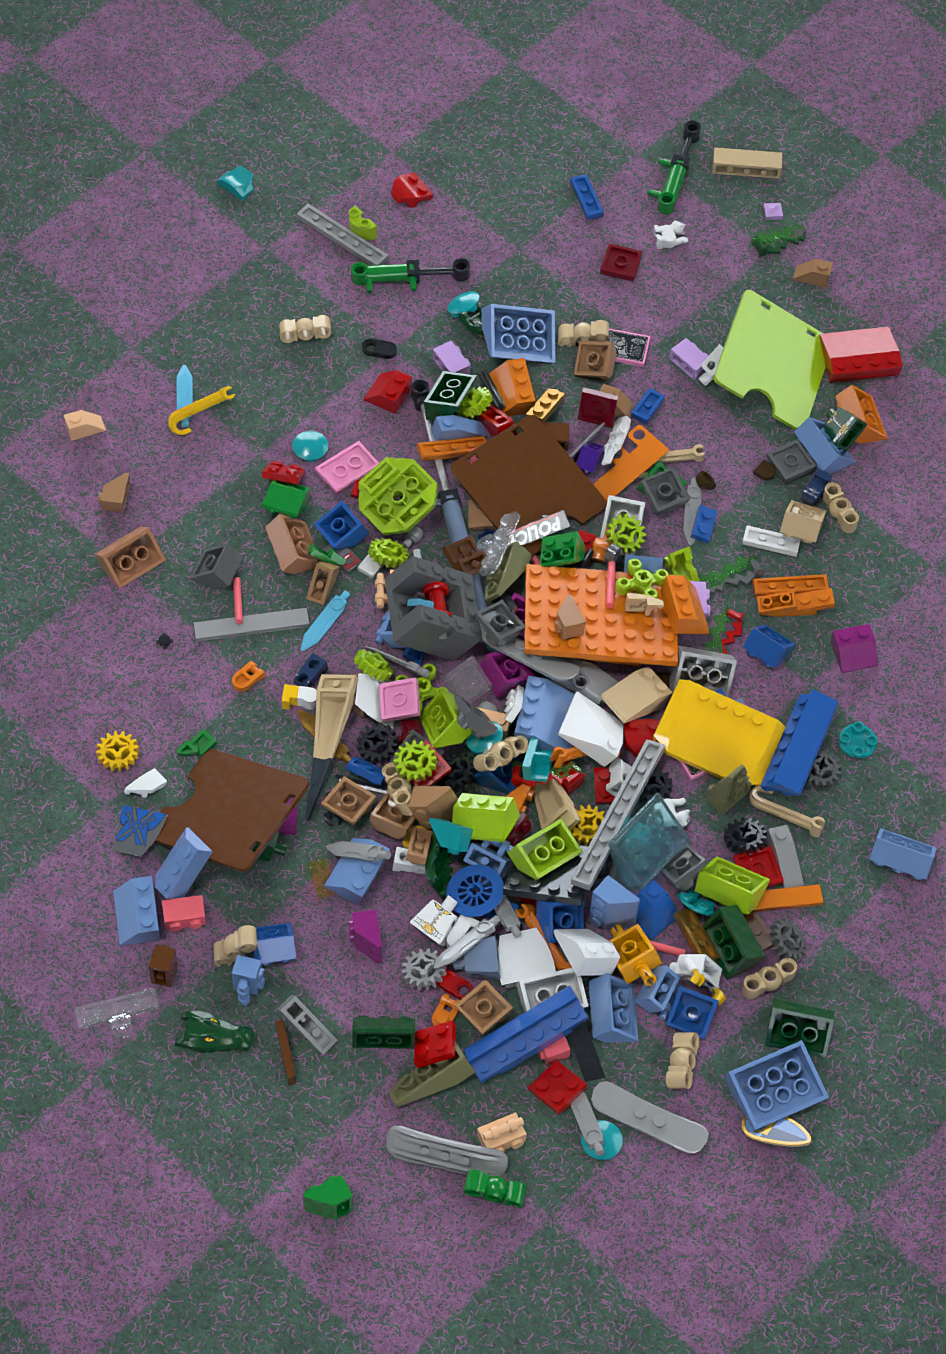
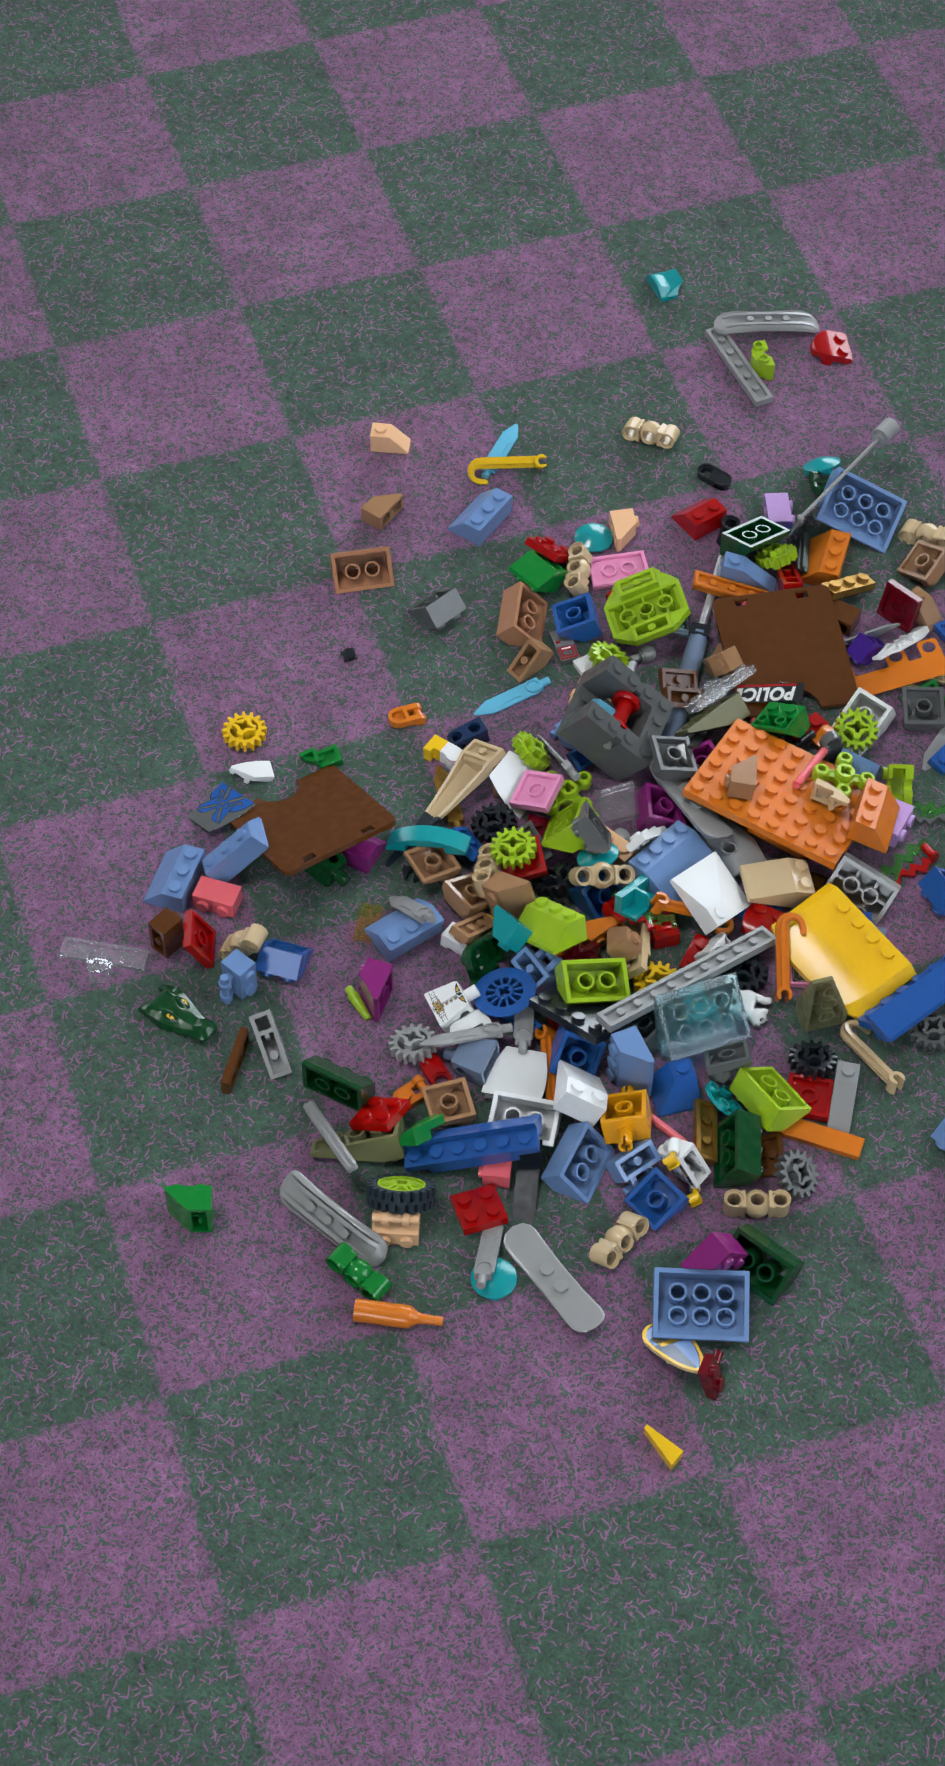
camera: 30 degrees right, 5 degrees down
(193, 958) = (199, 939): none -> red plate
(204, 463) = (483, 516): none -> medium blue slope
(237, 600) = (438, 646): coral bar -> none
(251, 624) = (439, 672): light grey tile -> none
(313, 476) = (578, 569): none -> tan piece
(330, 425) = (623, 526): none -> light nougat slope
(330, 557) = (551, 642): green slope -> none
(337, 779) = (429, 836): none -> teal slope
(342, 187) = (757, 321): none -> light grey piece
(355, 953) = (356, 1000): none -> lime animal
(406, 1083) = (330, 1136): none -> light grey axle
(409, 272) = (785, 419): green piece -> none
(477, 1043) = (421, 1130): none -> green slope
(483, 354) = (880, 436): none -> light grey flag
(487, 519) = (722, 662): none -> medium nougat slope
(494, 1105) = (401, 1193): none -> black wheel
(540, 1211) = (391, 1314): none -> orange piece
(548, 805) = (623, 943): none -> medium nougat slope
(676, 757) = (782, 953): none -> orange piece
(771, 1038) = (717, 1252): none -> magenta slope
(813, 1216) = (666, 1449): none -> yellow piece
(819, 1141) = (710, 1374): none -> dark red plate

